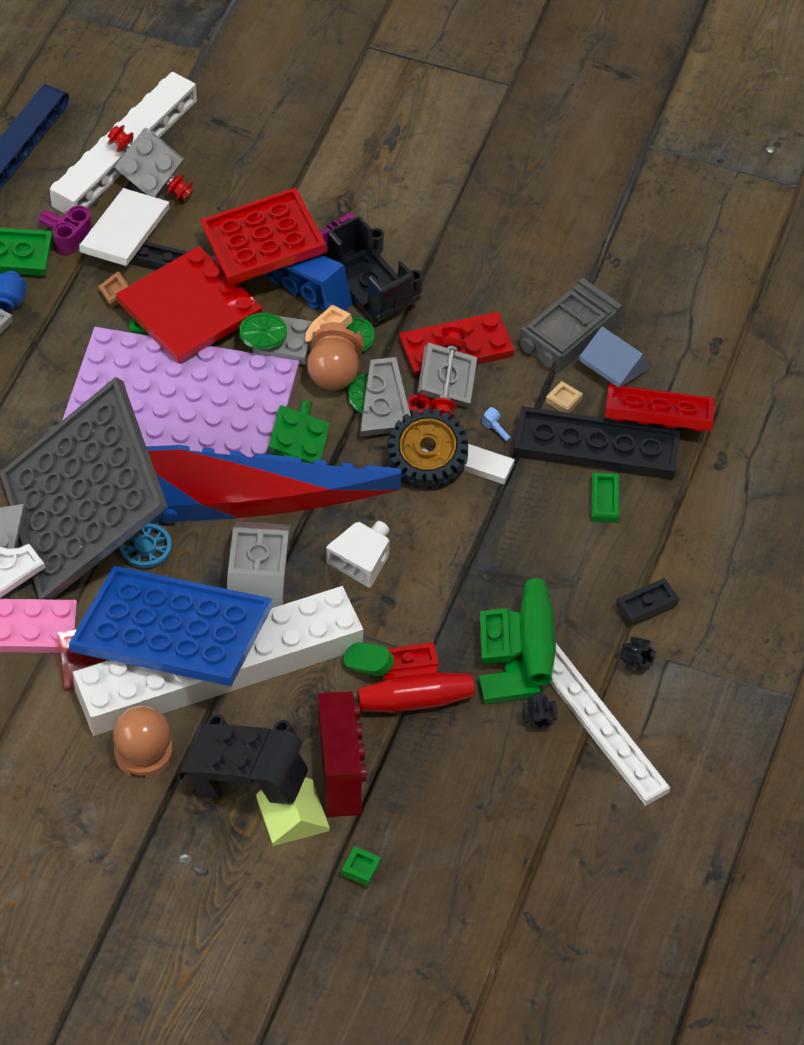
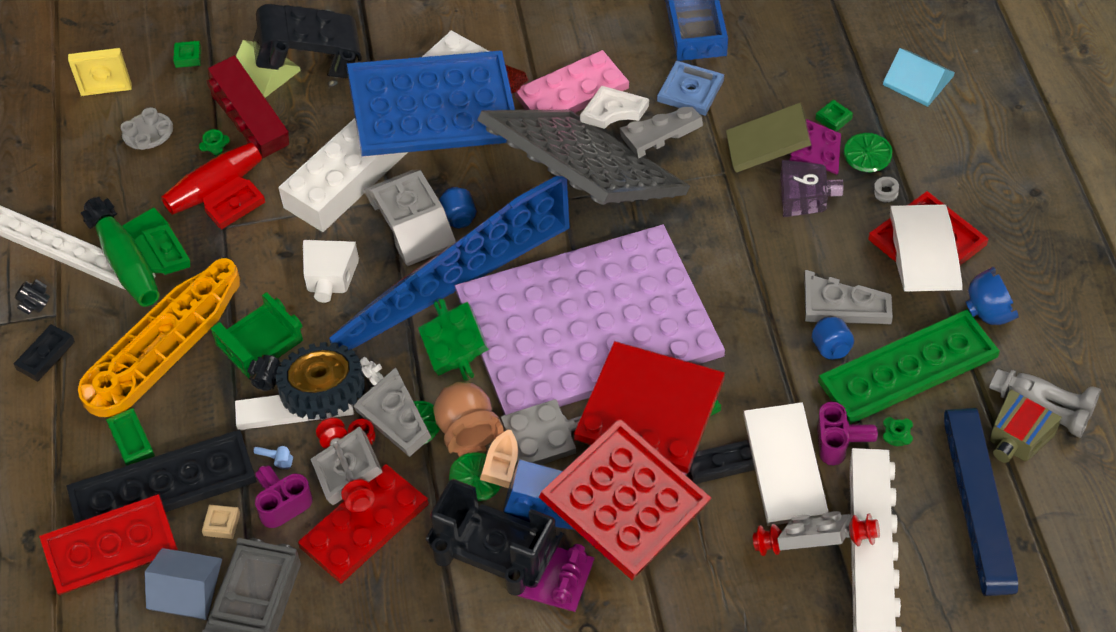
camera: 155 degrees right, 0 degrees up
(24, 214) = (898, 438): none -> green plate
(112, 286) = (738, 397): medium nougat tile -> none
(142, 741) = (403, 36): nougat tile -> none
(146, 546) = (517, 188): dark azure wheel -> none
(212, 550) = (458, 207): none -> blue head
(263, 331) = (555, 411): green wheel -> none
(368, 659) = (261, 182): green tile -> none
(381, 442) = (371, 370): none -> white plant
(390, 738) = (214, 141): none -> green plate
(448, 793) = (147, 129): none -> light grey dish
(456, 525) = (262, 332): none -> green panel
(466, 866) = (100, 71): none -> light yellow tile
(468, 483) = (264, 372): none -> black gear
(509, 382) = (280, 495): none -> magenta beam
(547, 555) = (158, 340): none -> light orange beam

